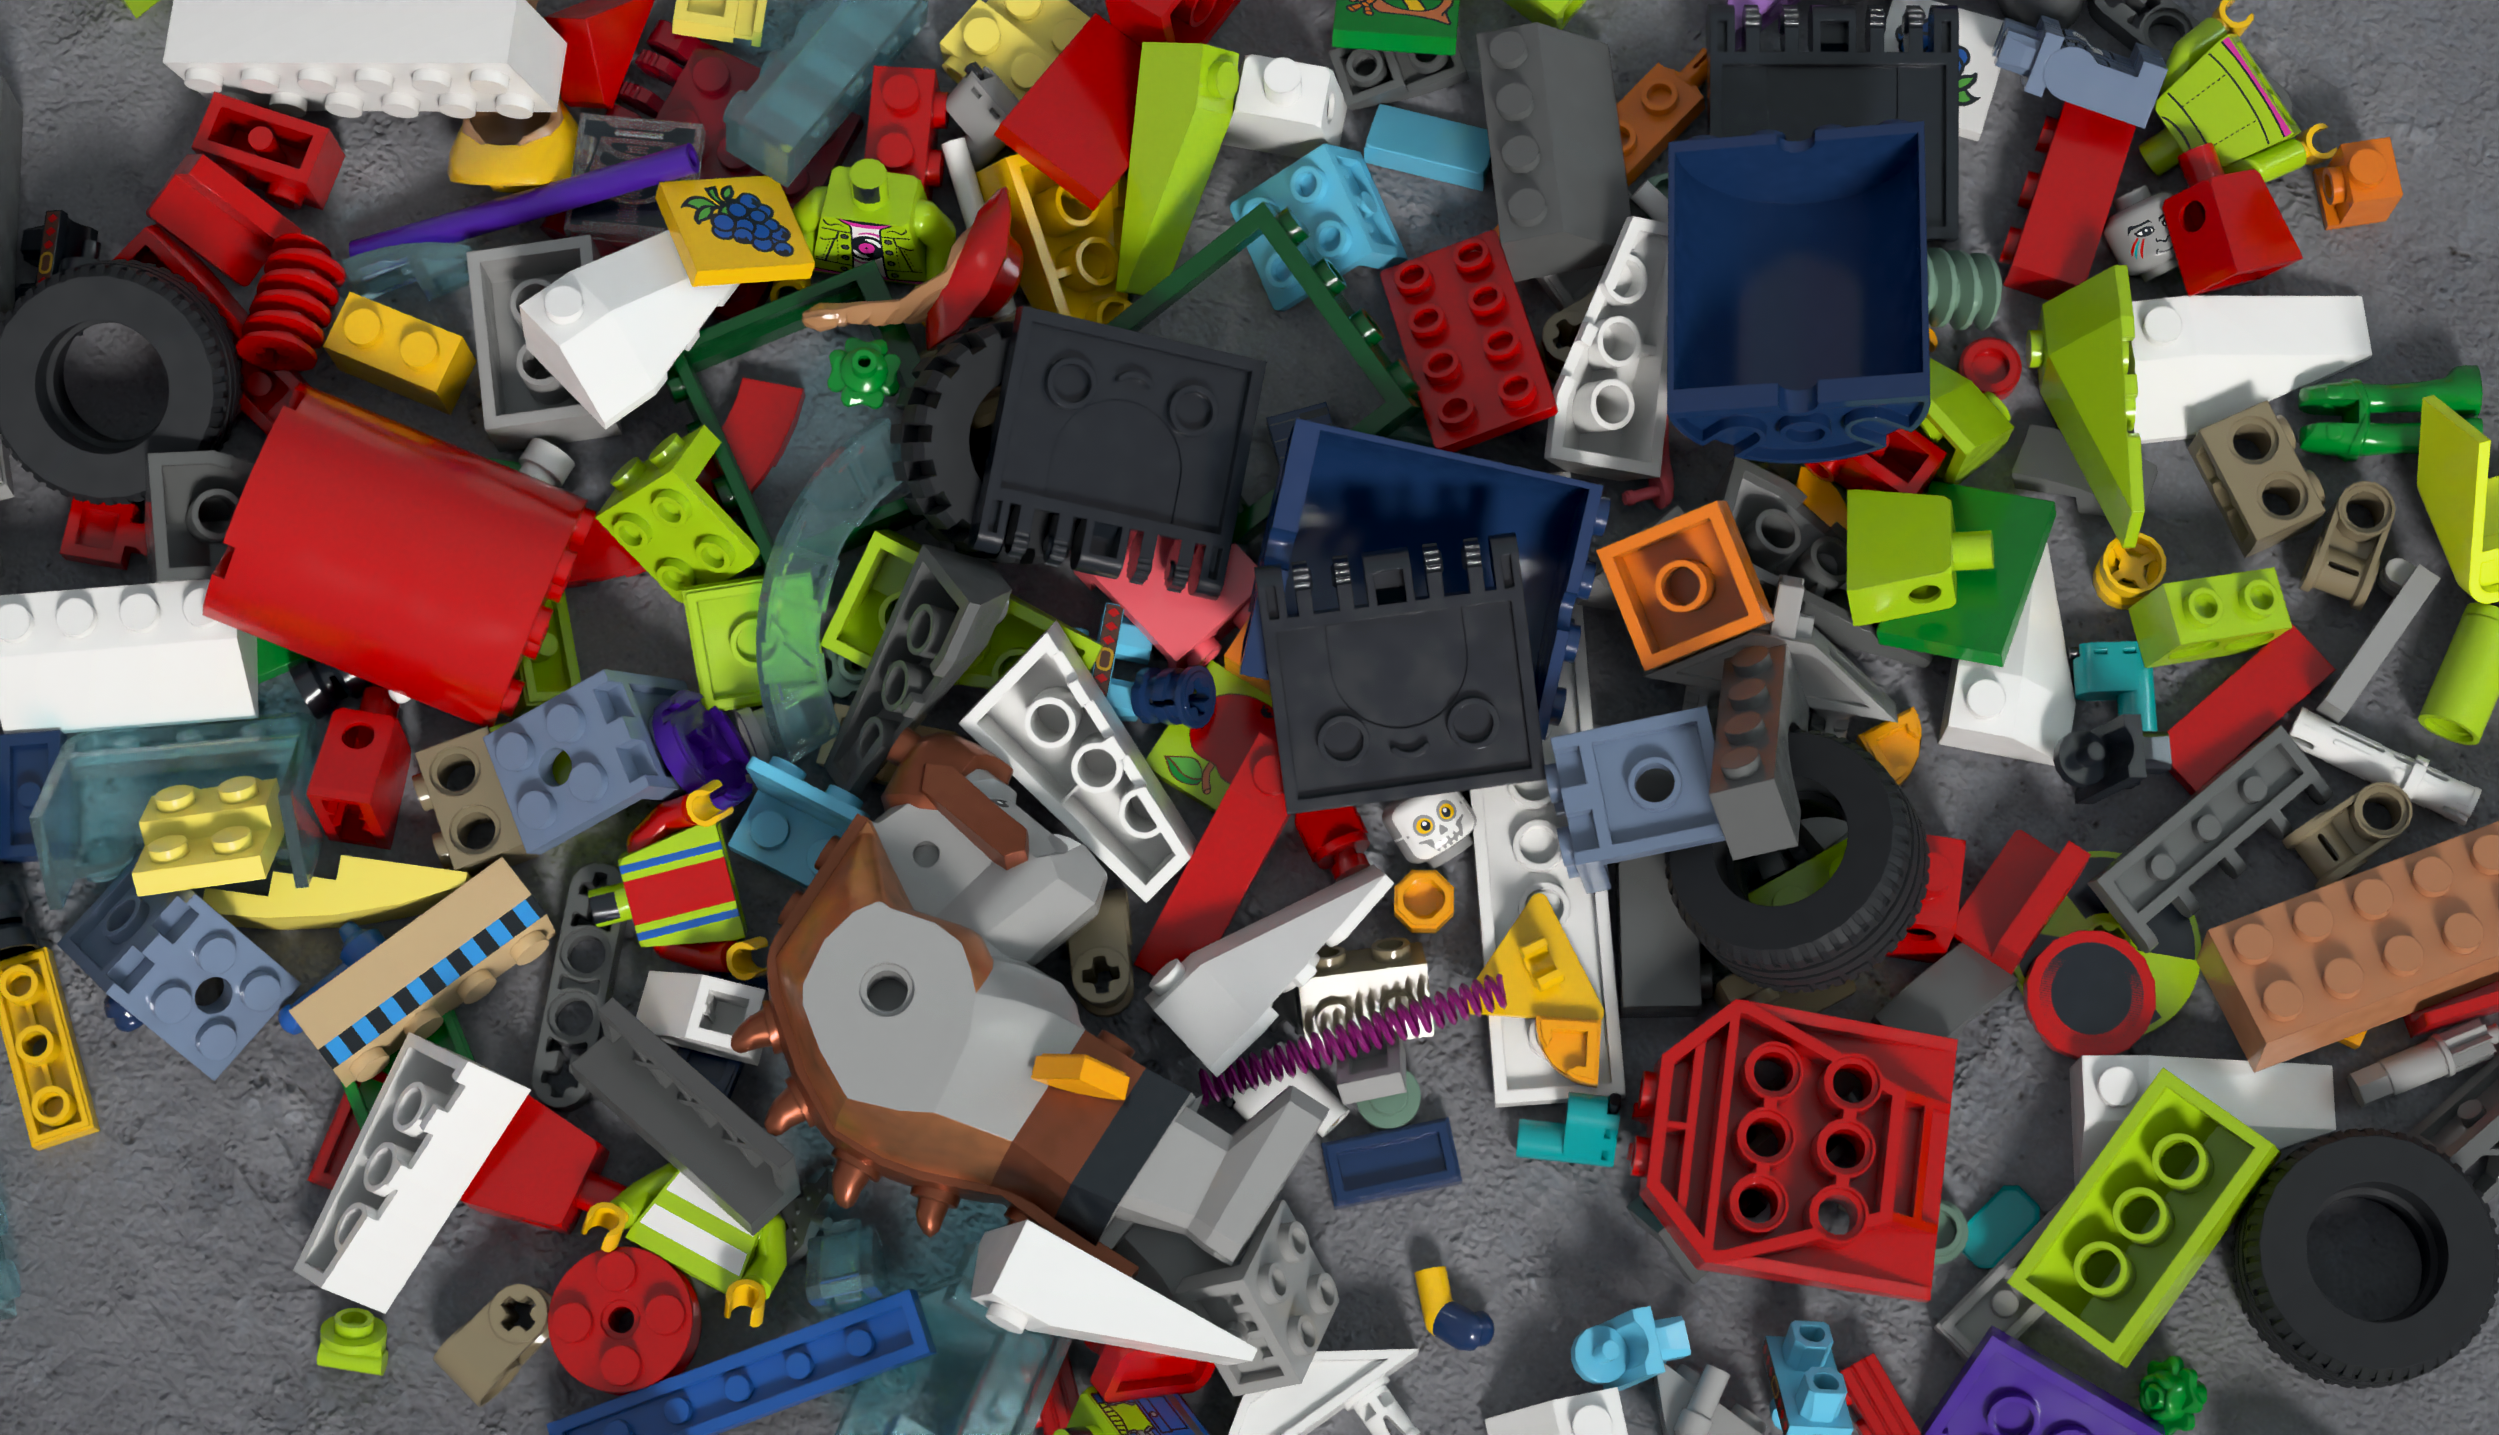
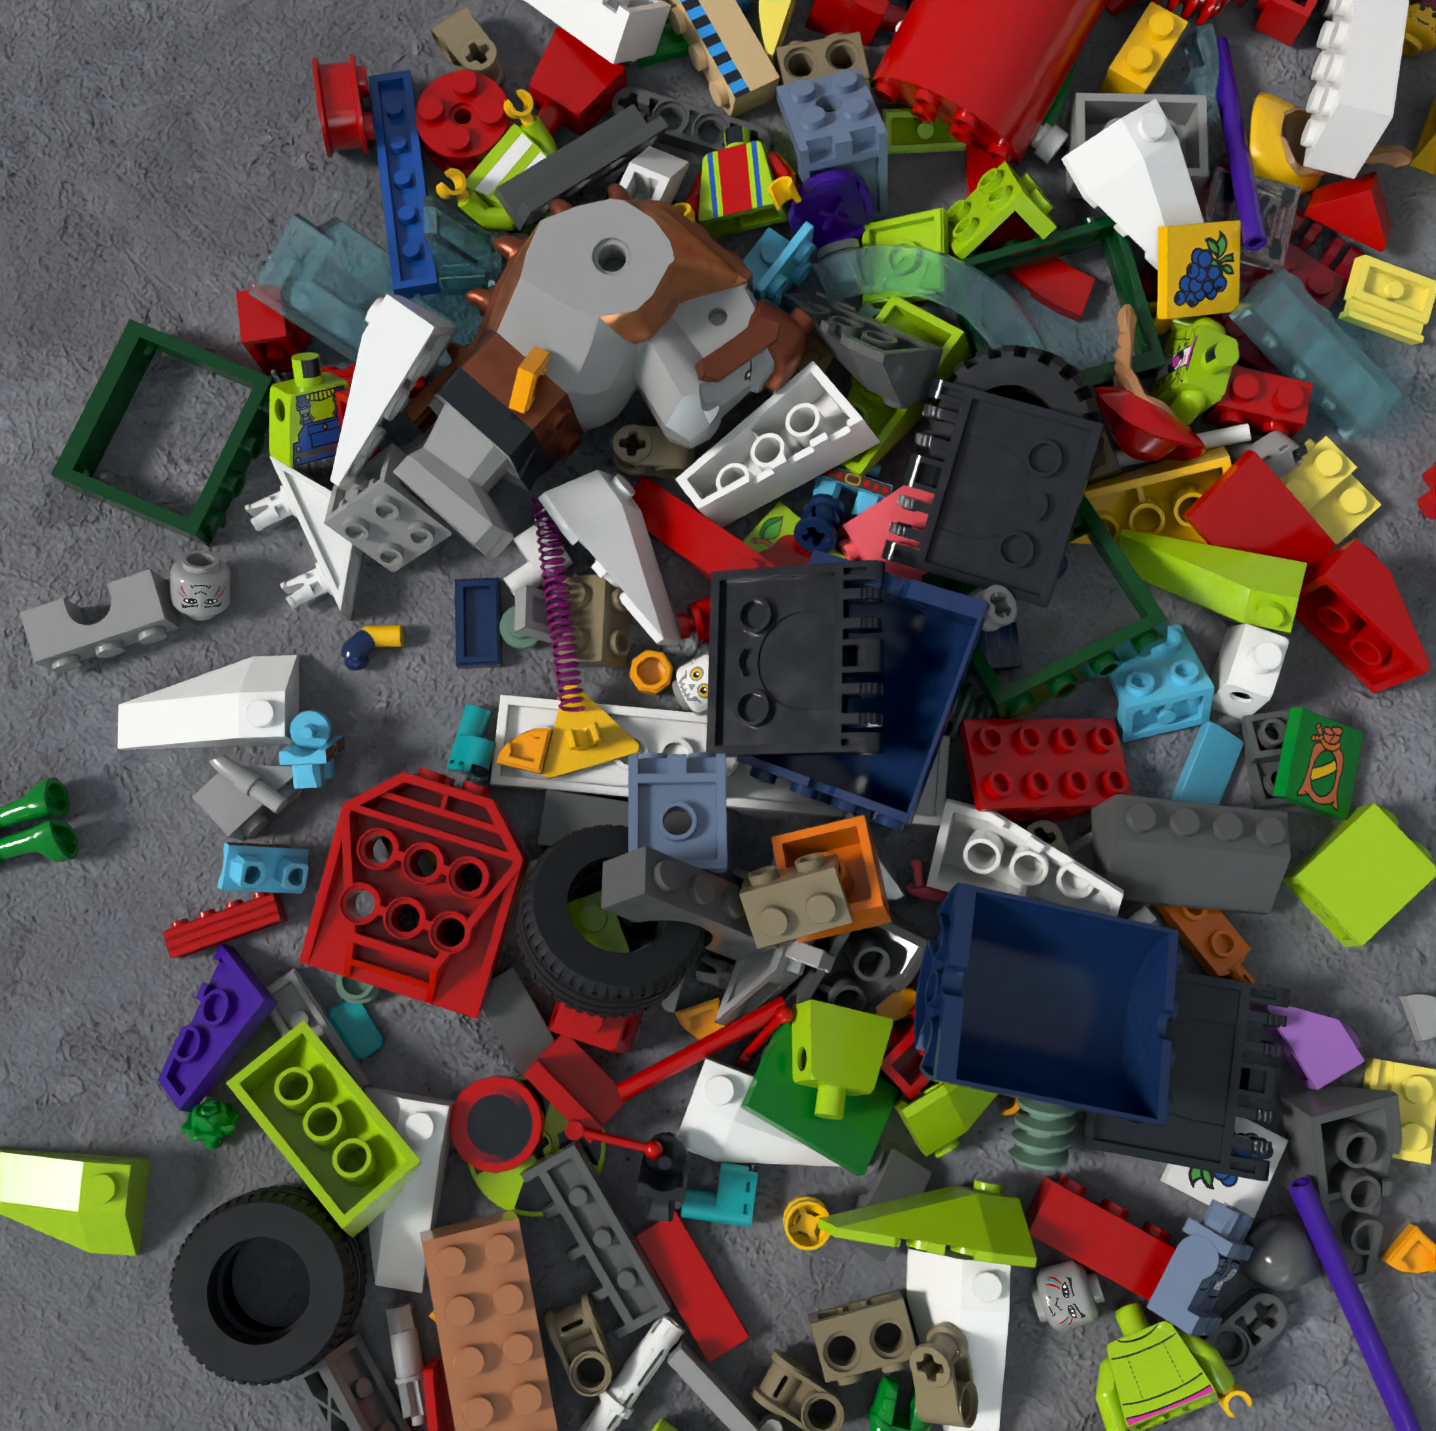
camera: 95 degrees right, 5 degrees up
(864, 373) = (1081, 341): green plant -> none
(1271, 426) = (1002, 609): none -> light grey bush
(1729, 614) = (795, 900): none -> dark tan bracket
(1870, 632) = (782, 1016): none -> red hinge
(1933, 738) = (698, 1050): none -> red bar
(1991, 366) = (979, 1151): red tile -> none
(2079, 873) = (575, 1130): none -> red hinge
(2209, 617) = (758, 1275): lime brick -> none
(2225, 226) = (1062, 1355): red torso -> none
(2285, 364) = (944, 1378): none -> dark tan piece

